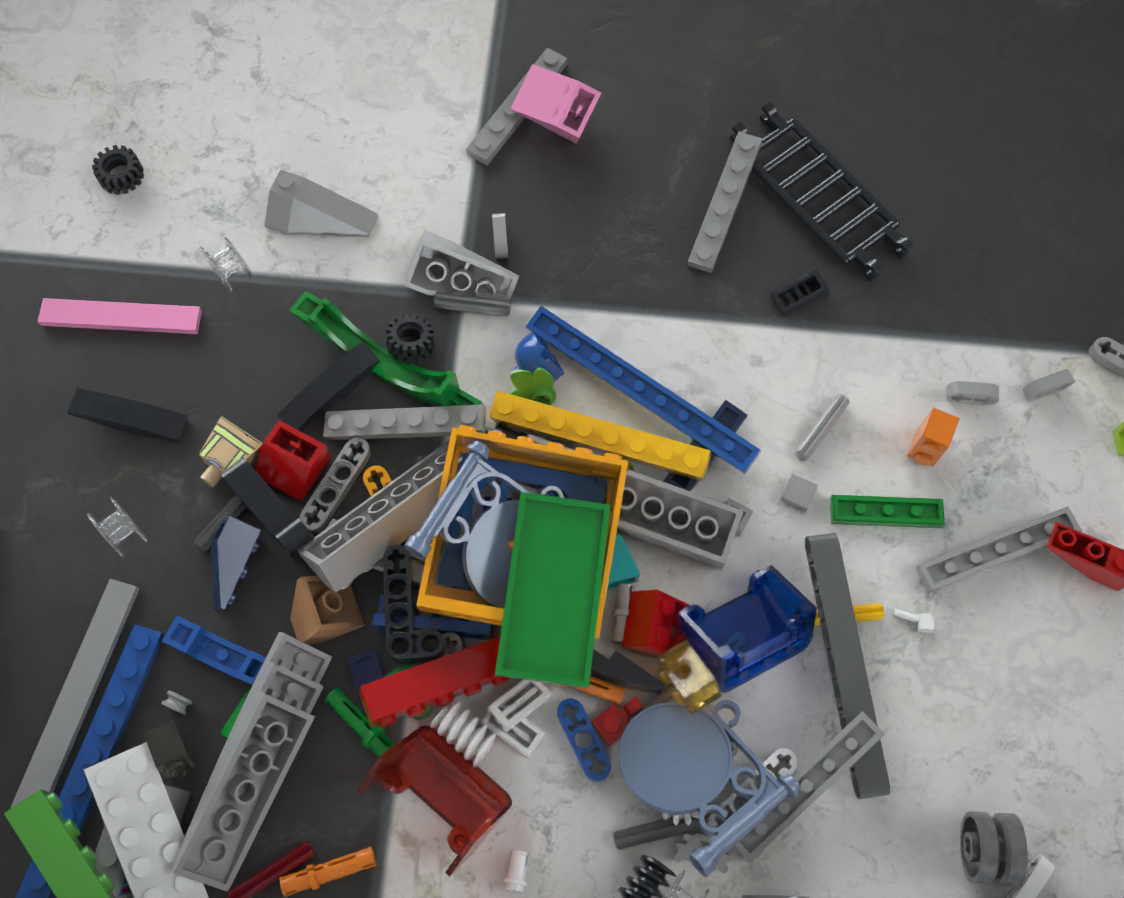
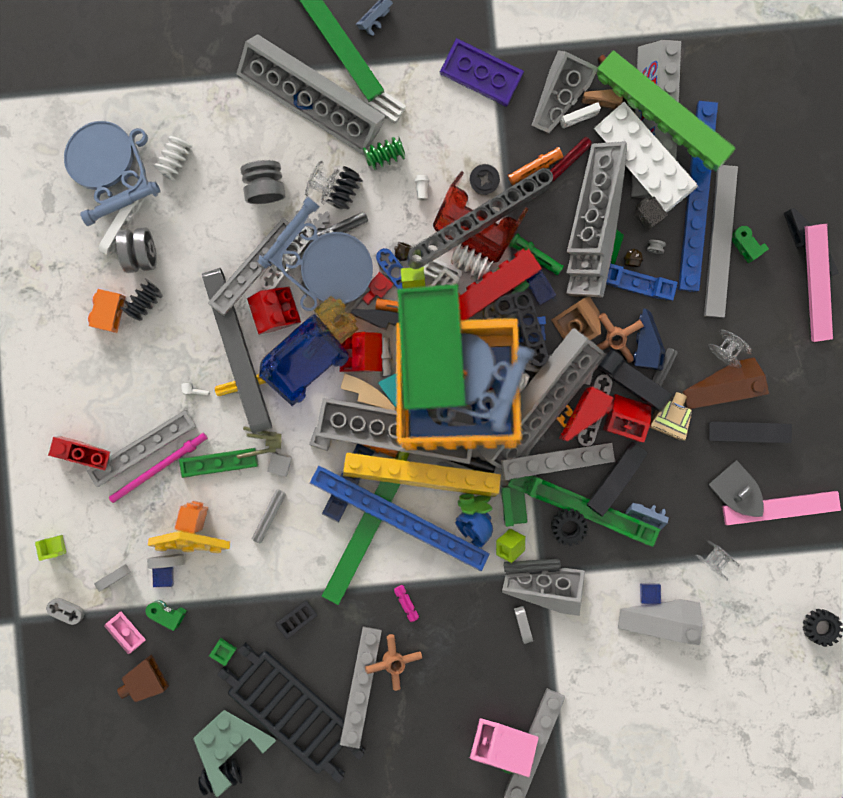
camera: 175 degrees right, 20 degrees up
(39, 679) = (746, 244): none -> green leg
(136, 481) = (728, 385): none -> reddish brown wedge
(169, 346) = (739, 490): none -> dark grey shield
(216, 691) = (633, 258): none -> dark brown plate
(273, 577) = (613, 331): none -> nougat bar
(300, 333) = (648, 515): none -> sand blue plate
(325, 245) = (650, 593): none -> clear blue tile
(348, 471) = (588, 410): none -> red slope
(398, 865) = (481, 171): none -> black gear
(420, 795) = (475, 225): none -> dark grey beam
(480, 377) = (513, 506): none -> green panel
(494, 331) = (510, 545): none -> lime panel
(559, 718) = (413, 277): none -> lime panel
(566, 770) = (402, 251): none -> dark brown plate
(649, 288) = (406, 603): none -> dark pink axle
(657, 566) = (366, 392): none -> tan slope
(678, 220) = (391, 656): none -> nougat bar
(706, 365) = (357, 547): none -> green tile
(781, 715) = (273, 309): none -> red slope
(806, 524) = (273, 440): none -> olive plant
(902, 271) = (222, 652): none -> green plate
(911, 171) = (221, 740): none -> sand green wing
(918, 131) = (231, 772): none -> black piece
(930, 539) = (188, 446): none -> dark pink bar
(948, 402) = (188, 542): none -> yellow plate
(977, 372) = (163, 577): none -> clear blue tile
(978, 328) = (165, 615): none -> green leg
(985, 765) = (142, 301): none -> black piece
(1010, 254) = (143, 681): none -> reddish brown torso
(1033, 317) = (124, 633): none -> bright pink slope
(1044, 763) = (106, 310): none -> orange brick

